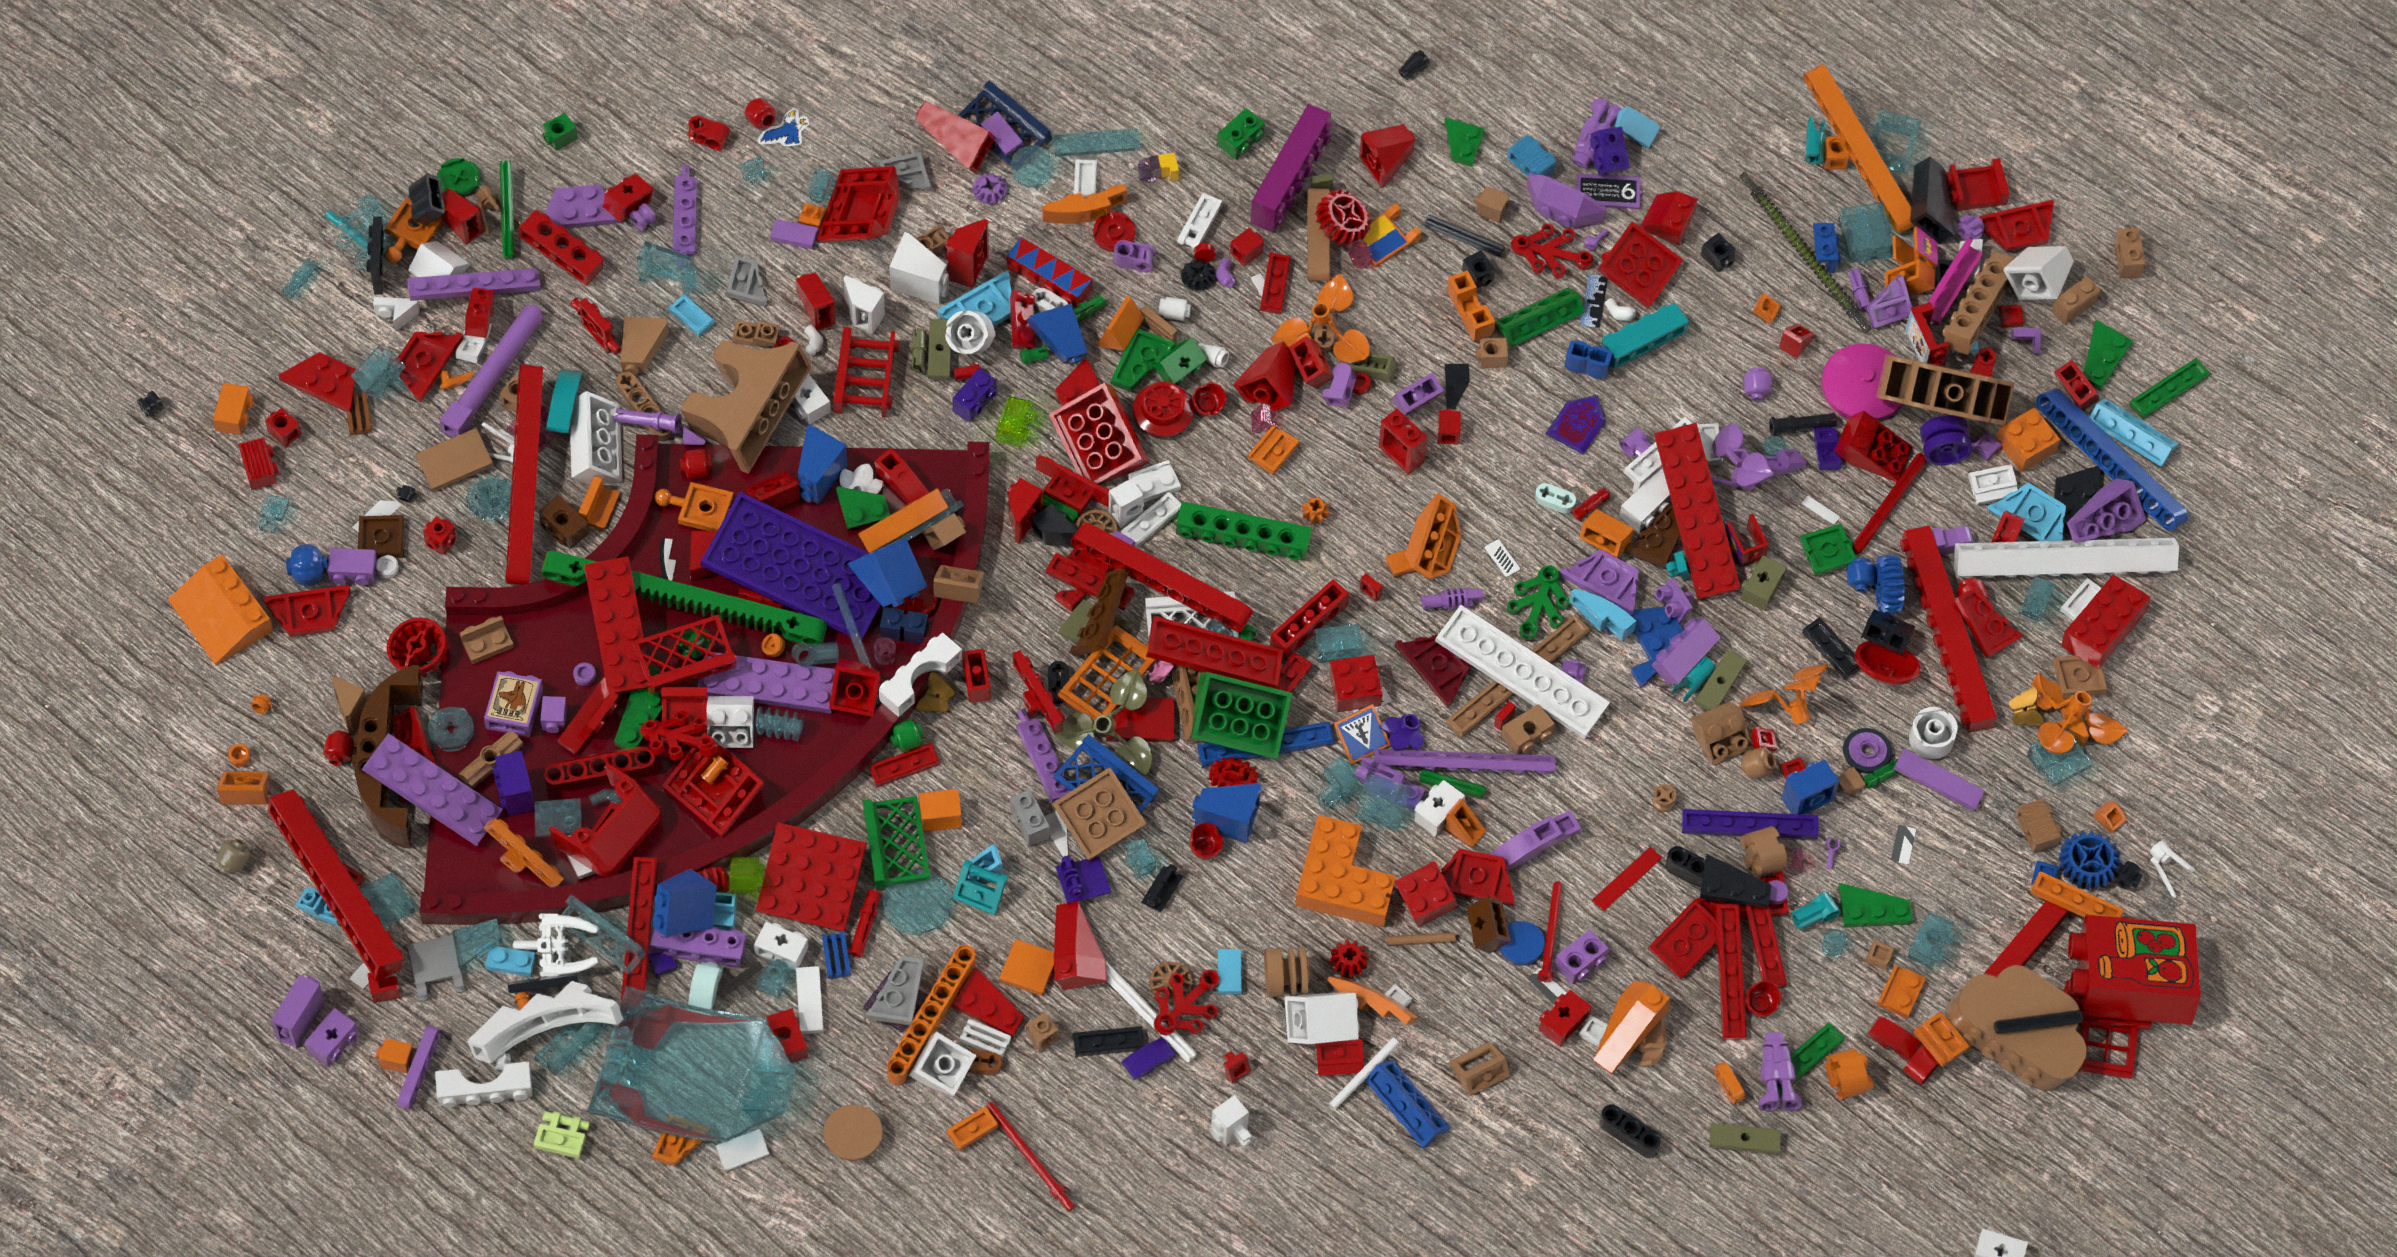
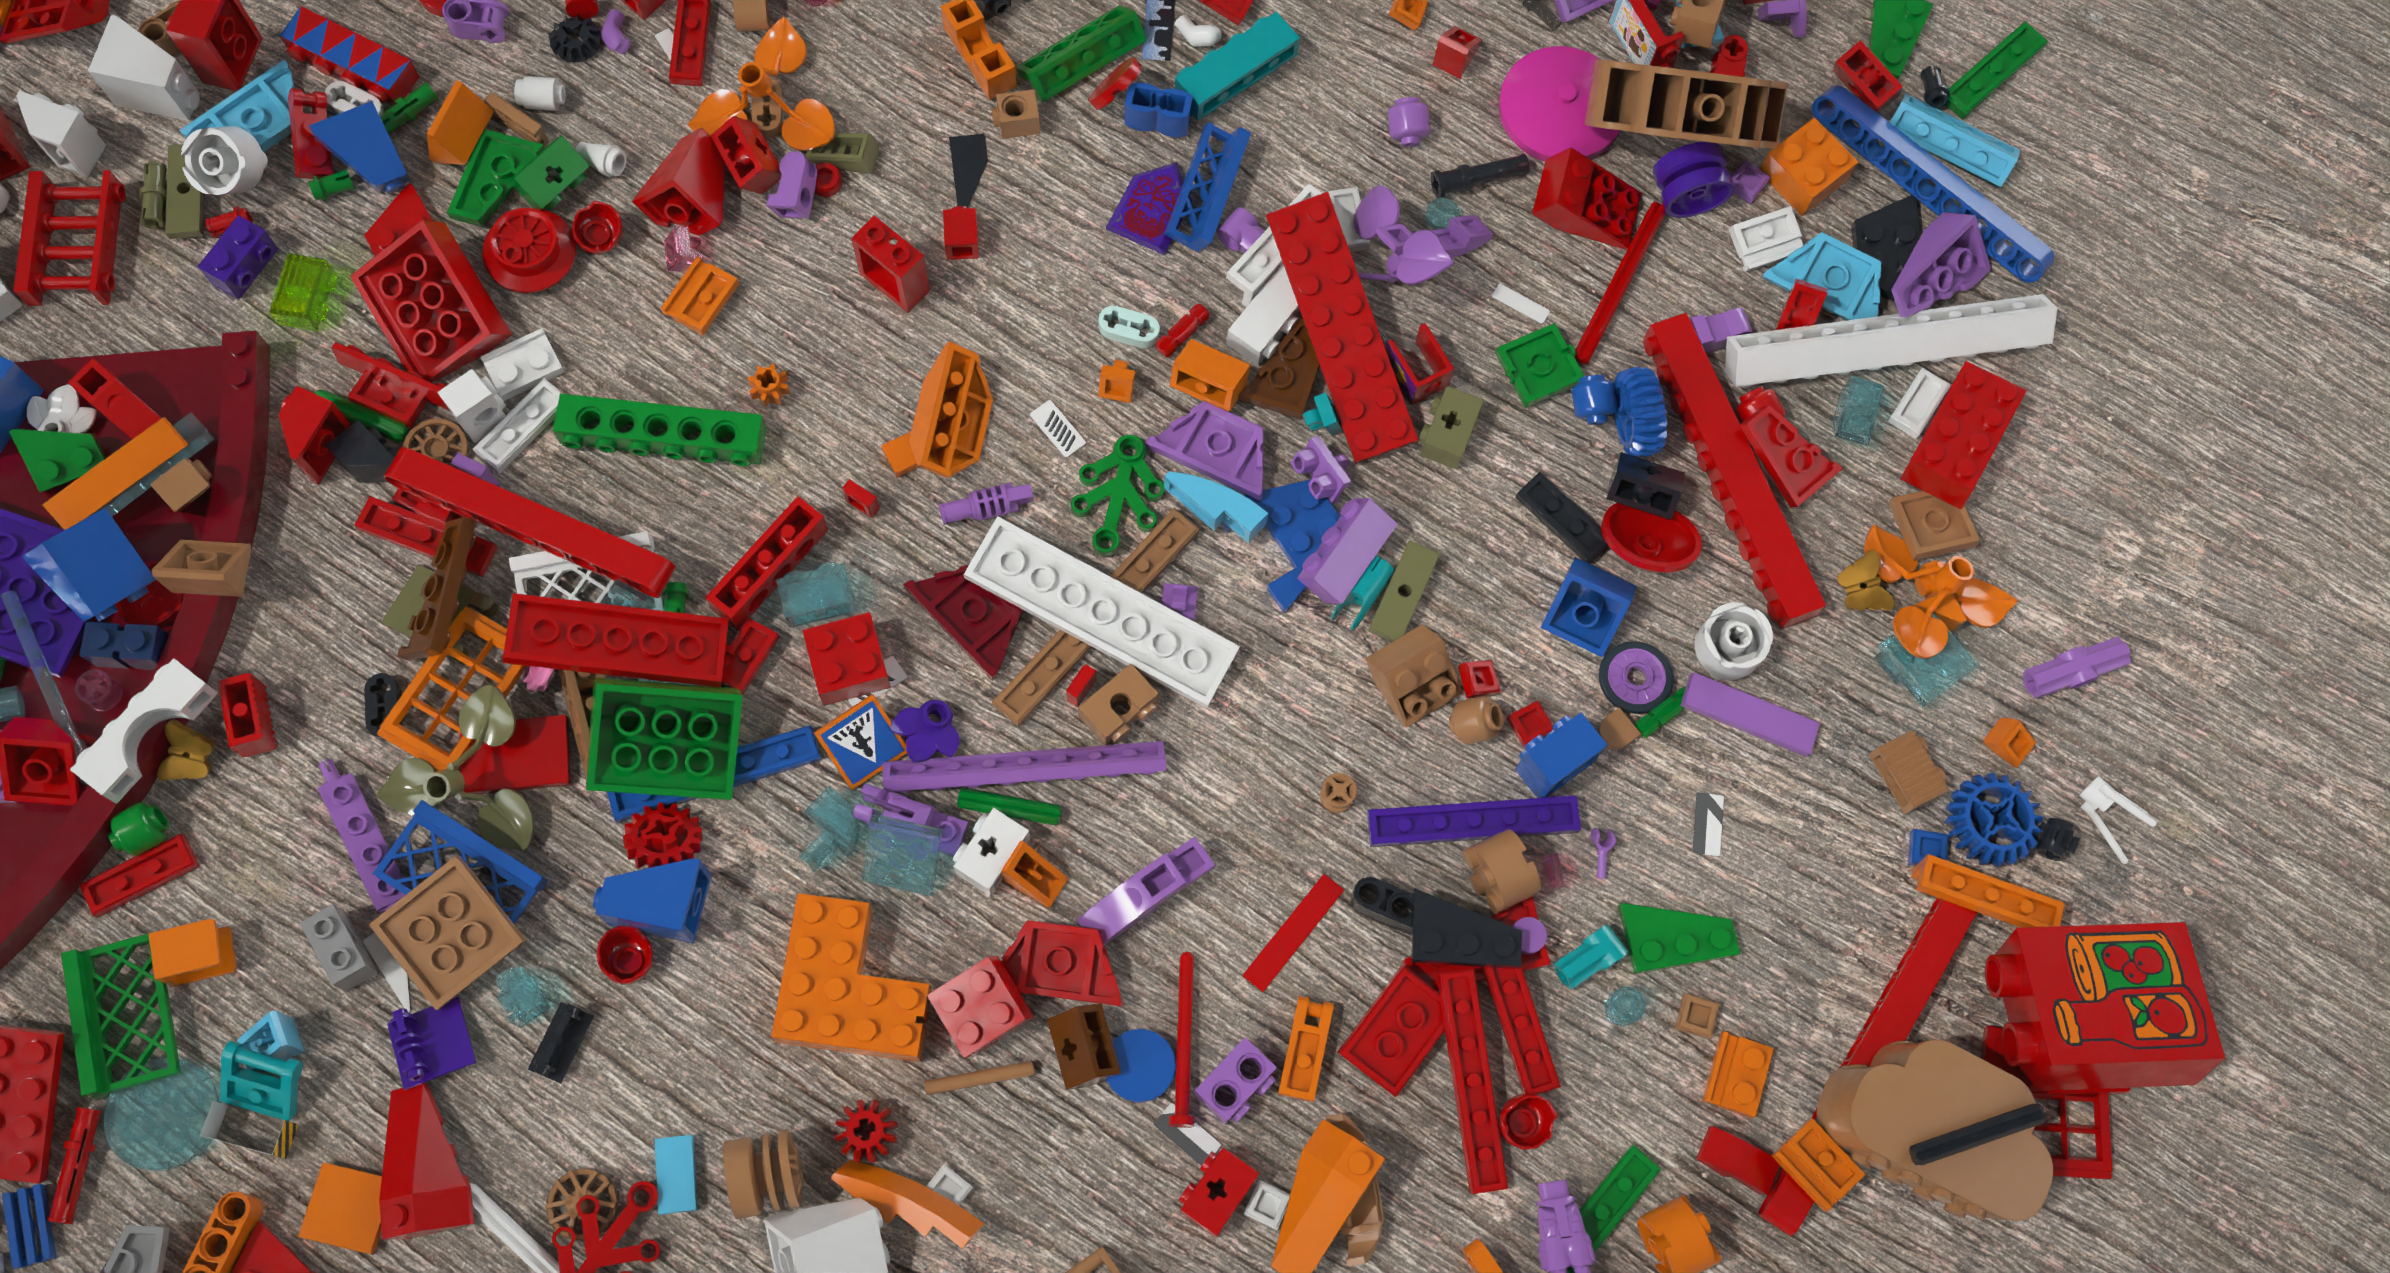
camera: 10 degrees left, 10 degrees up
(970, 924) = (215, 1120): none -> sticker
(1037, 696) = (343, 736): red plate -> none
(1070, 598) = (399, 565): red tile -> none
(1417, 394) = (909, 188): medium lavender brick -> none
(1544, 531) = (1116, 382): none -> orange tile
(1561, 338) = (1115, 82): none -> red tile
(1623, 415) = (1218, 190): none -> blue fence
(1627, 945) = (1305, 1050): none -> orange plate
(1798, 708) = (1539, 595): orange plant -> none
(1825, 444) = (1517, 203): dark purple slope -> none
(1841, 703) = (1589, 607): none -> blue slope
(1932, 928) = (1759, 1000): clear light blue brick -> none
(2124, 397) = (1936, 92): none -> black pin
(2160, 774) = (2076, 667): none -> medium lavender piece

